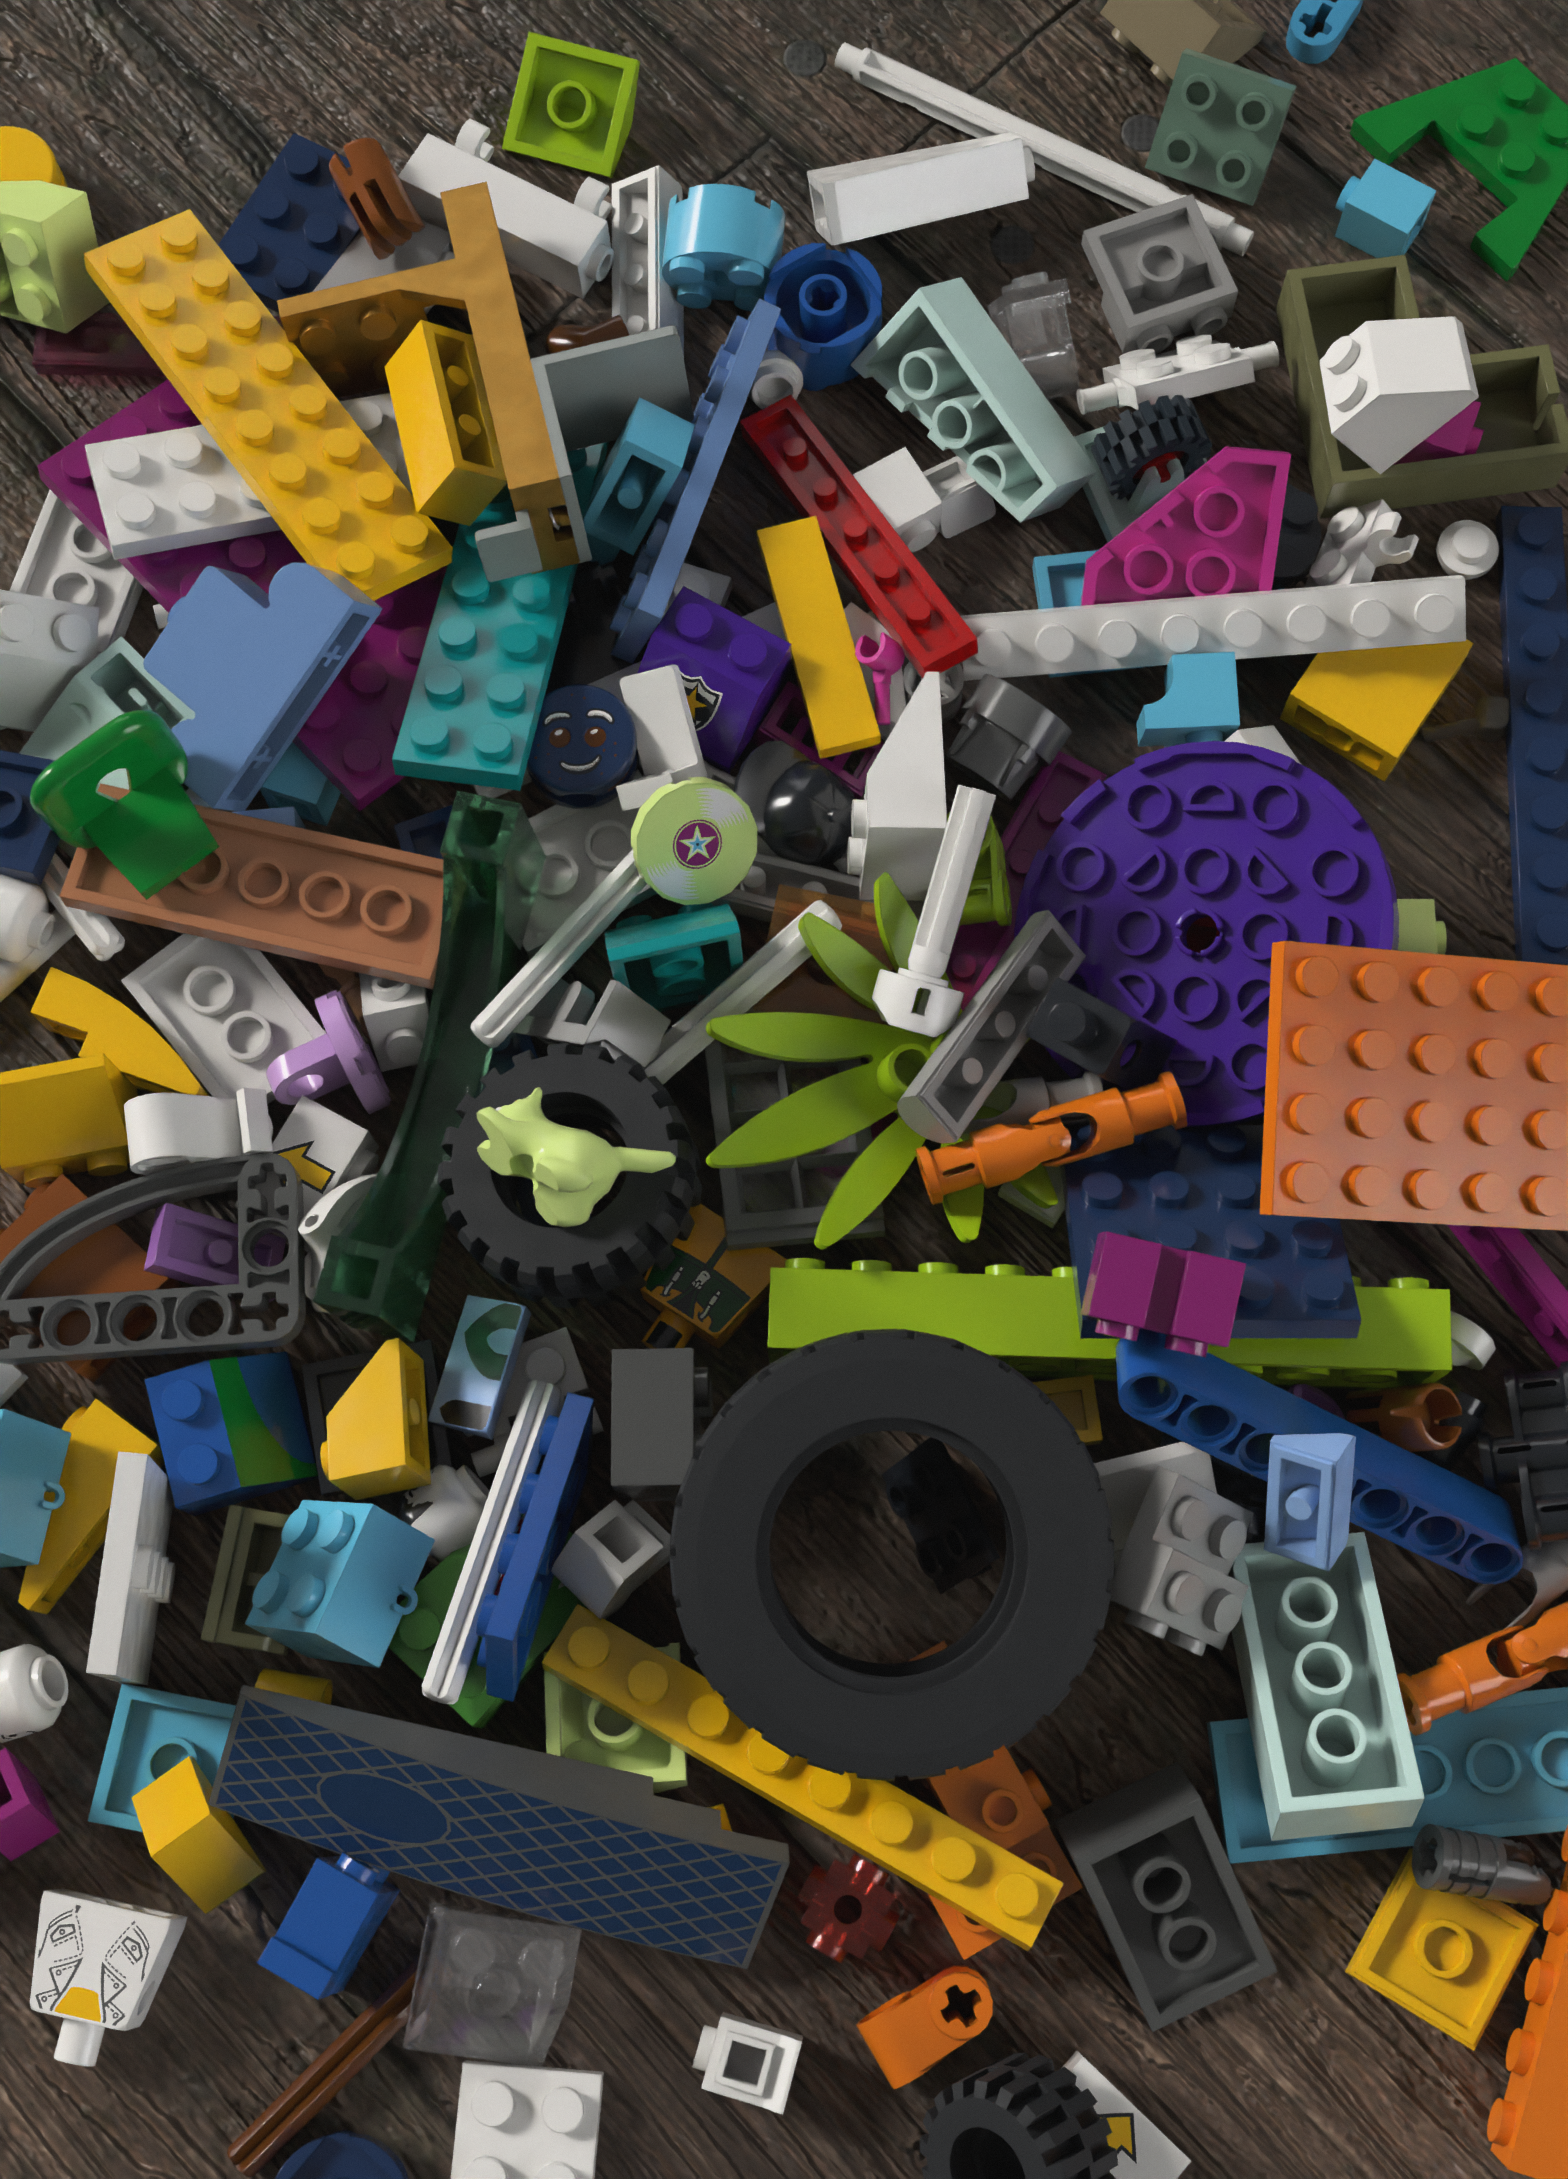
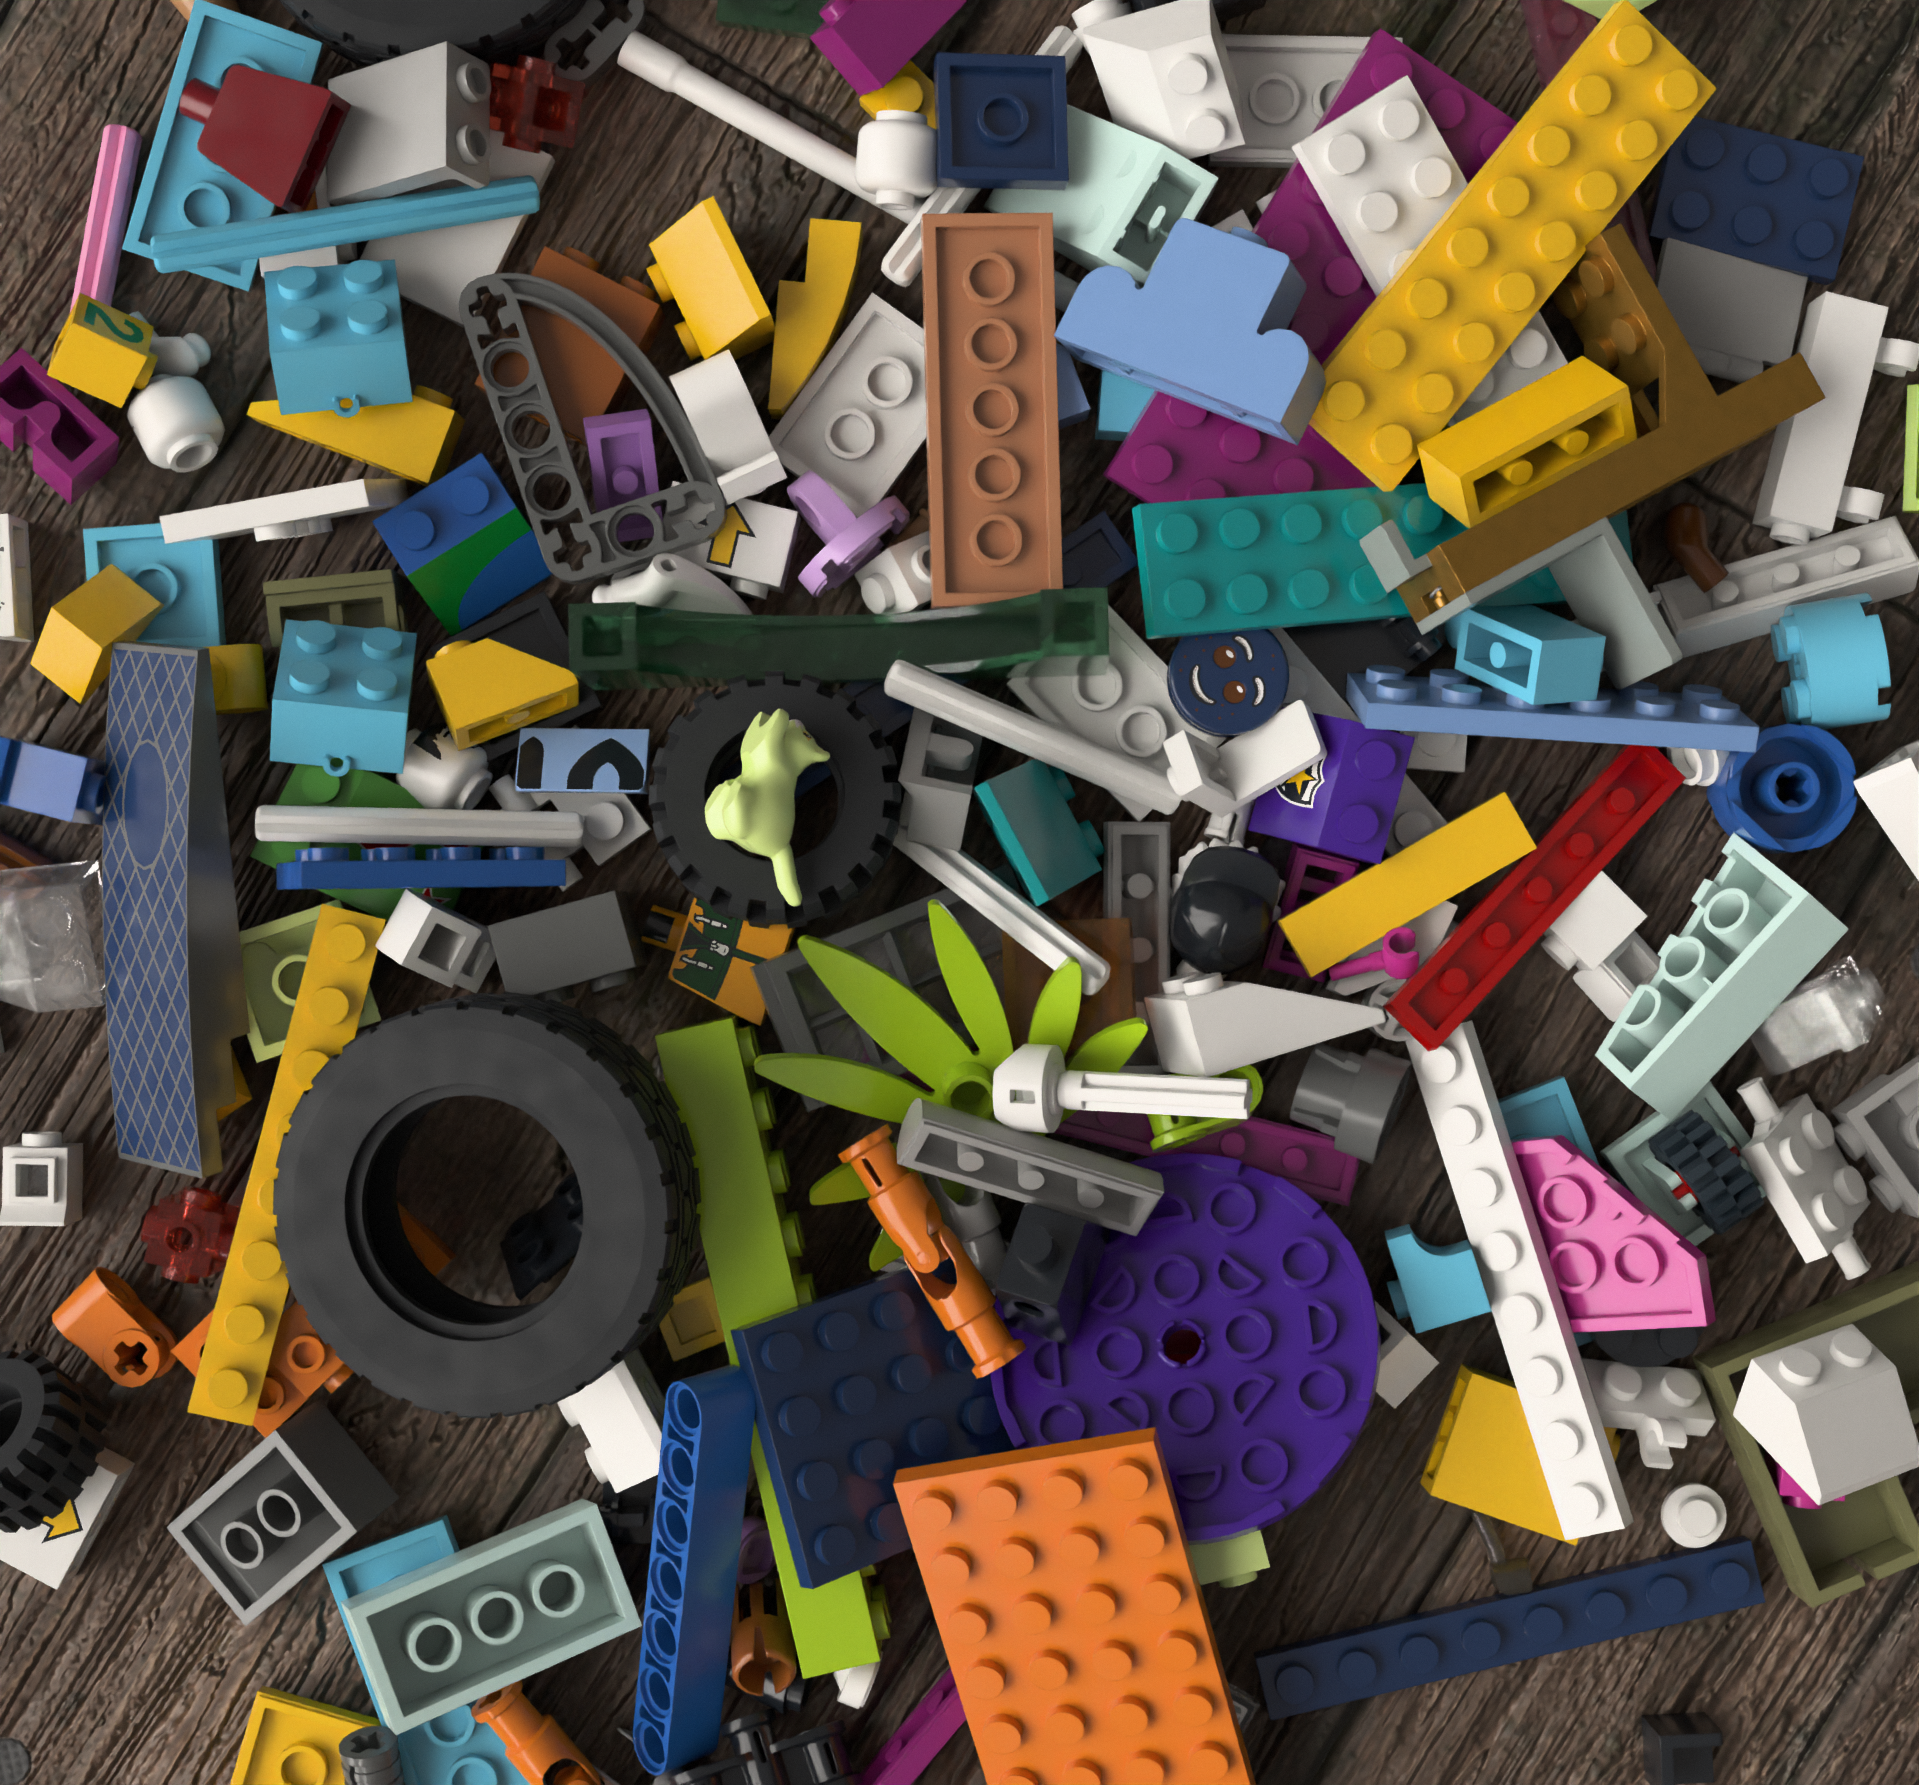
camera: 75 degrees right, 15 degrees up
(149, 831) = (1009, 283): green piece -> none
(375, 196) = (1796, 276): dark orange arm -> none
(694, 841) = (1146, 823): yellowish green tile -> none
(1162, 1291) = (780, 1401): magenta brick -> none
(1180, 1564) = (552, 1465): light grey plate -> none
(1309, 1497) = (645, 1573): light blue slope -> none

